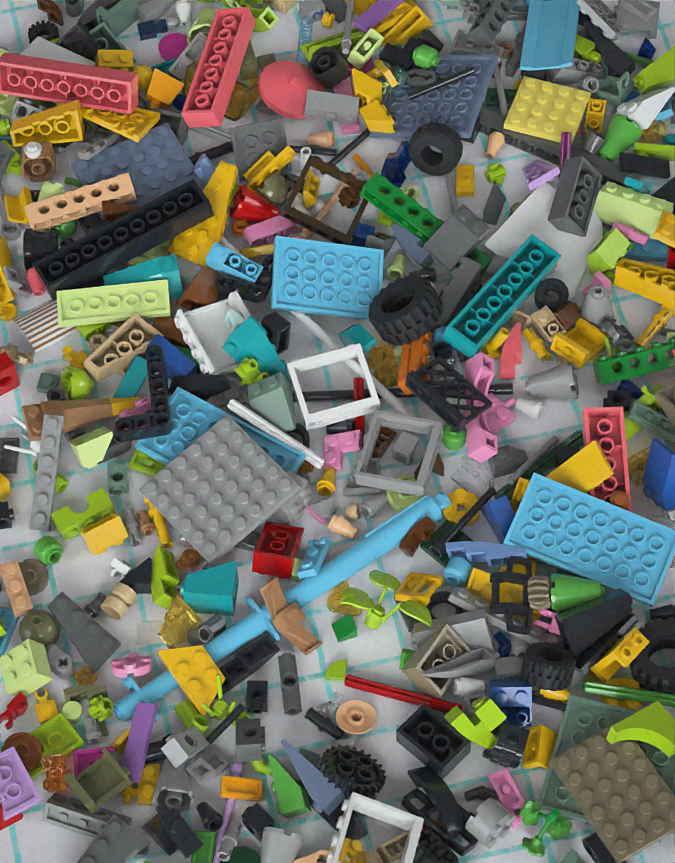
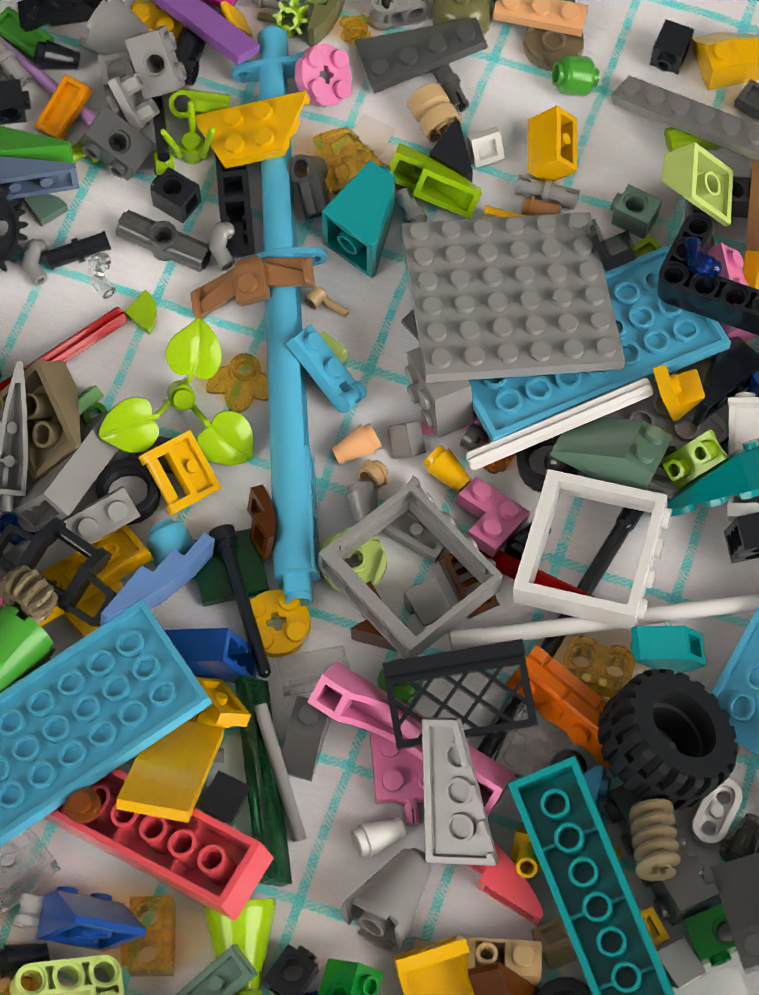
camera: 120 degrees right, 10 degrees up
(70, 523) = (604, 165): lime arch -> none
(149, 408) = (699, 261): none -> clear blue arm
(152, 466) = (614, 250): none -> black panel
(189, 559) = (433, 211): clear orange cone -> none
(217, 746) = (125, 103): none -> light grey hips
(221, 393) = (679, 391): none -> yellow slope
(275, 650) = (217, 245): none -> light grey arm
(277, 550) = (376, 339): red slope -> none
(356, 717) = (57, 273): light nougat dish -> none
(456, 287) = (654, 839): none -> dark tan piece
(498, 371) = (453, 804): none -> light grey wing
(536, 344) = (491, 927): yellow pin -> none

